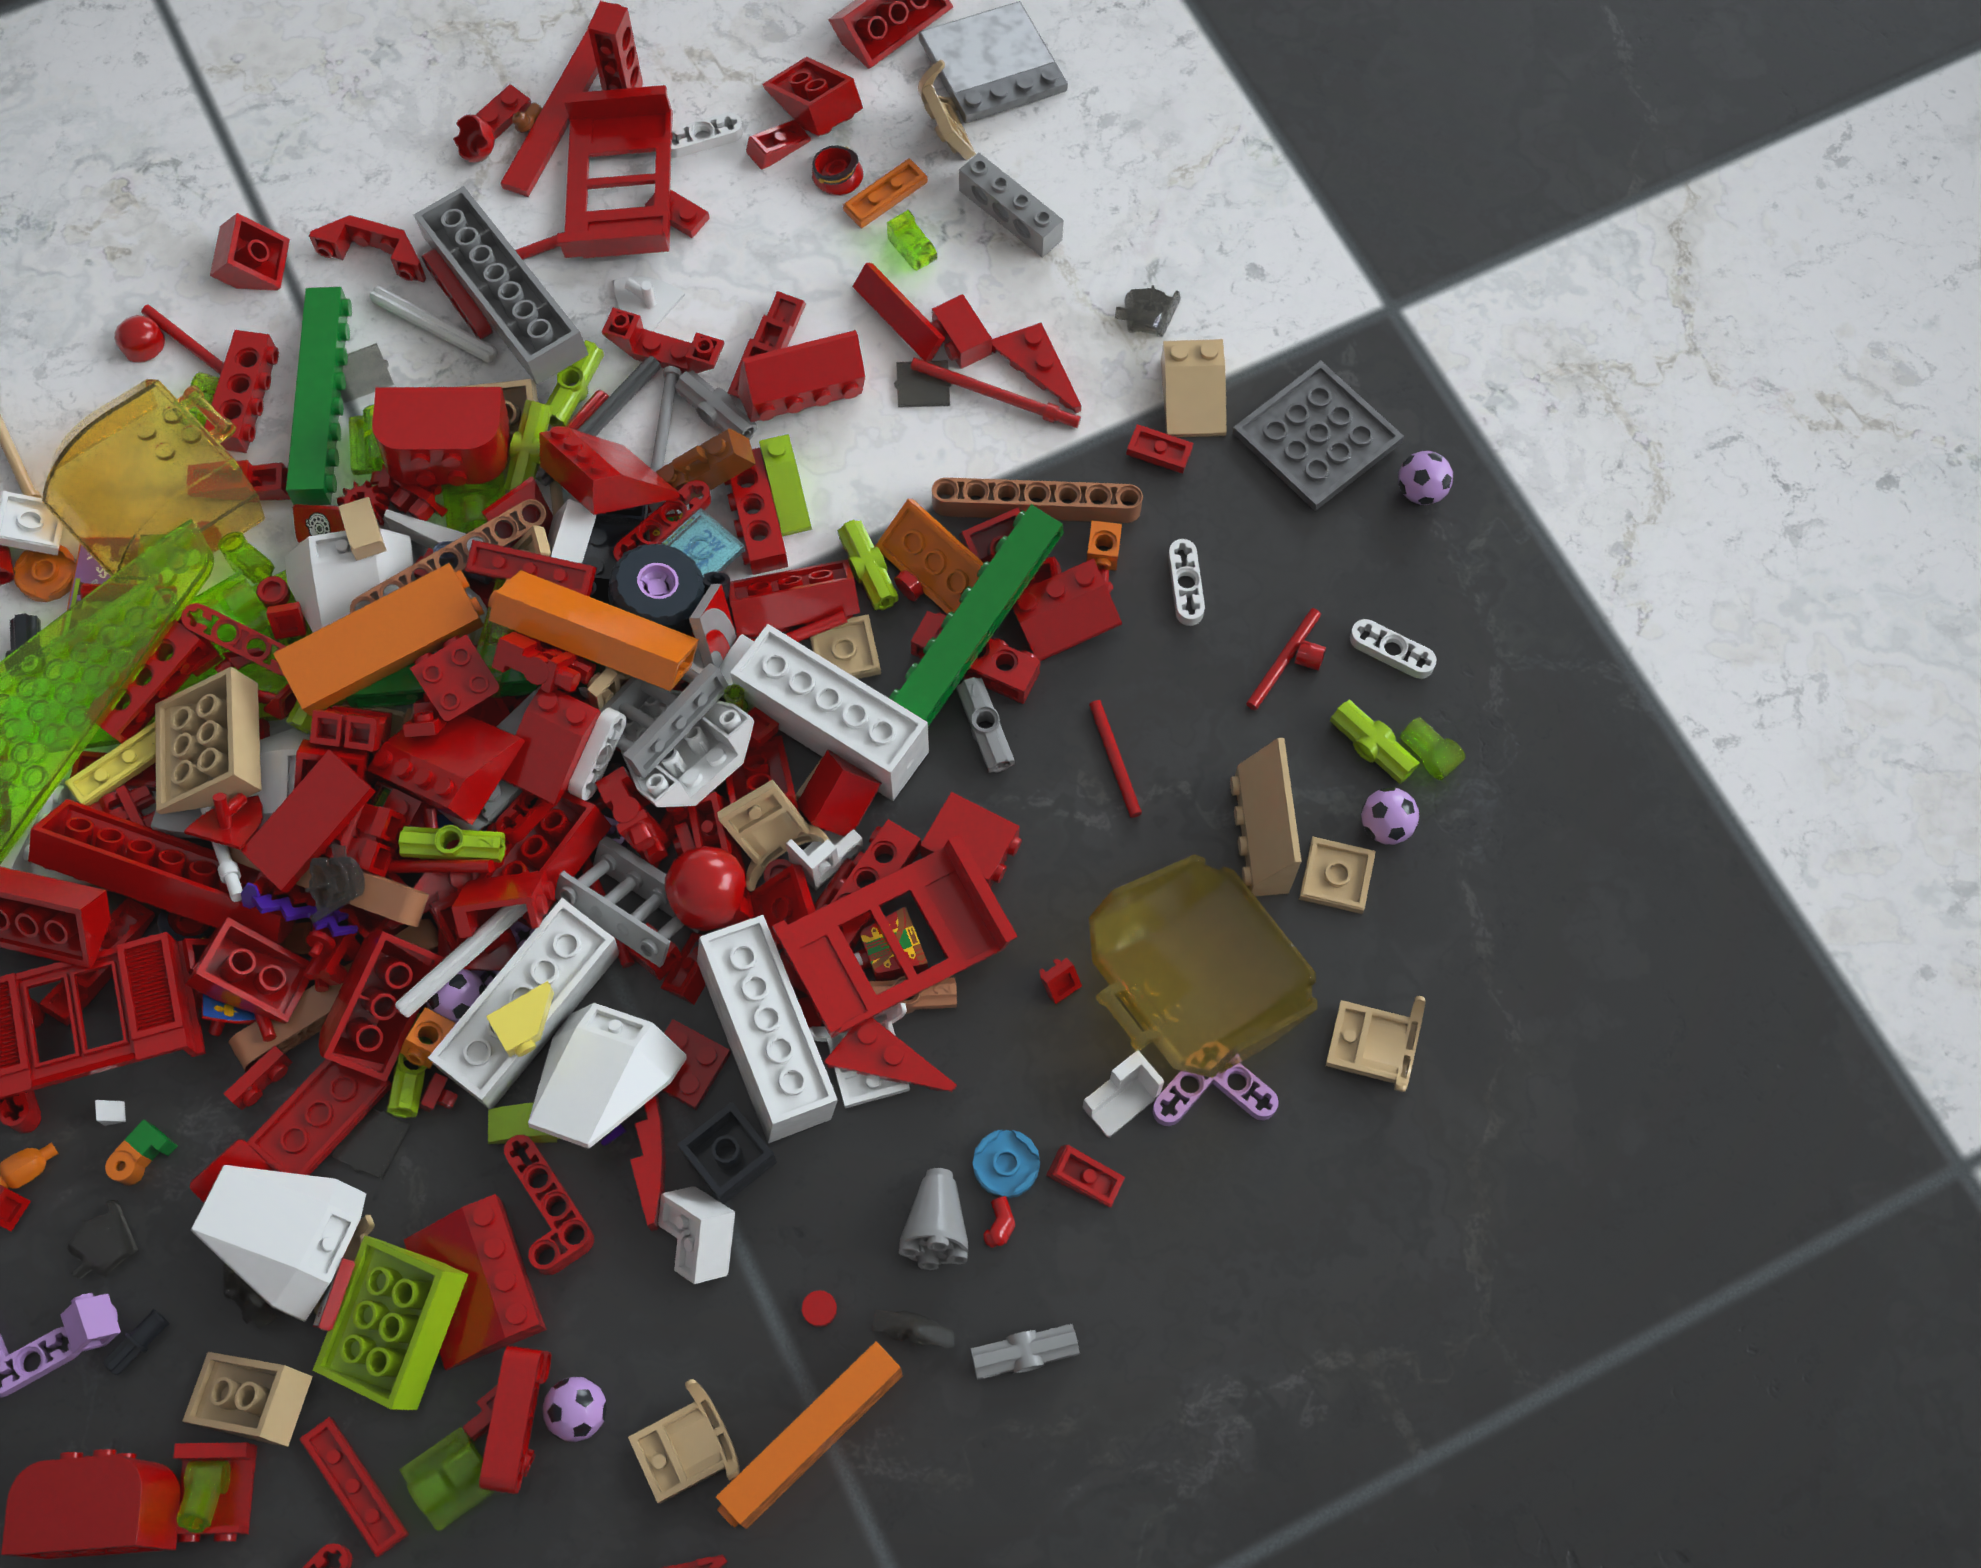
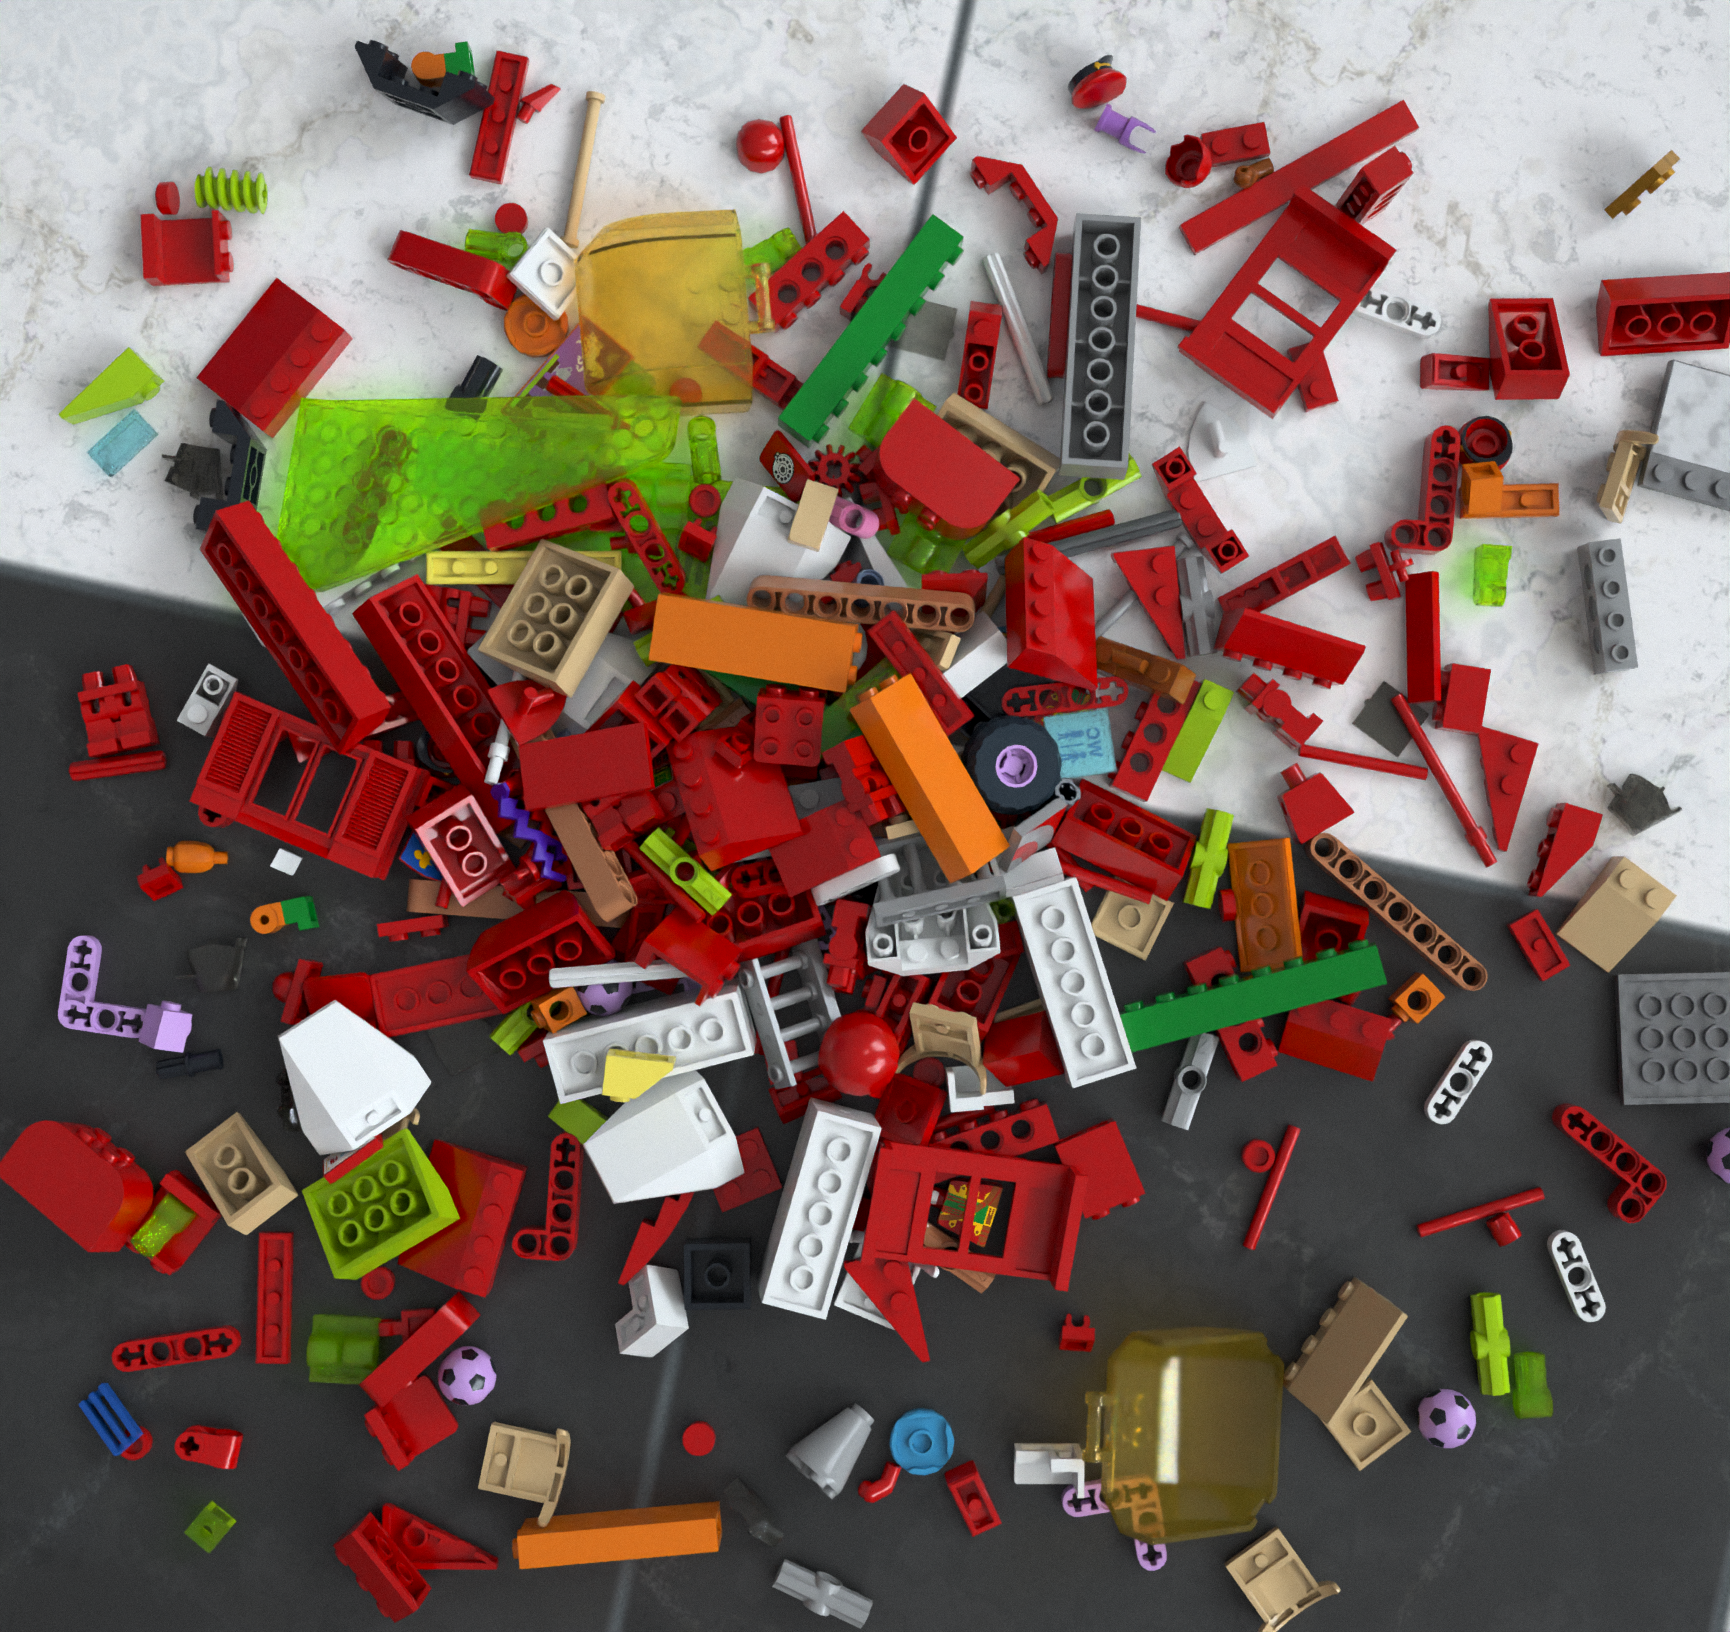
camera: 40 degrees right, 20 degrees up
(184, 1207) = (289, 989): none -> red tile
(288, 379) = (858, 294): none -> red plate
(334, 882) = (570, 841): clear smoke piece -> none
(366, 134) = (1096, 84): none -> red piece
(400, 515) = (846, 514): none -> bright pink piece
(408, 152) = (1120, 127): none -> medium lavender piece
(413, 351) = (979, 353): none -> red slope
(439, 1399) = (378, 1283): none -> red tile
(555, 1492) = (411, 1422): none -> red bracket
(670, 410) = (1155, 582): none -> red wing
(824, 214) = (1429, 490): none -> red beam
(832, 426) = (1275, 708): none -> red hips
(843, 299) = (1377, 558): none -> red hips
(854, 188) = (1481, 488): none -> orange brick
(911, 472) = (1310, 804): none -> red torso
(926, 424) = (1363, 762): none -> red bar
(1085, 744) = (1257, 1155): none -> red tile
(1115, 361) = (1568, 838): none -> red slope
(1337, 552) = (1606, 1155): none -> red beam

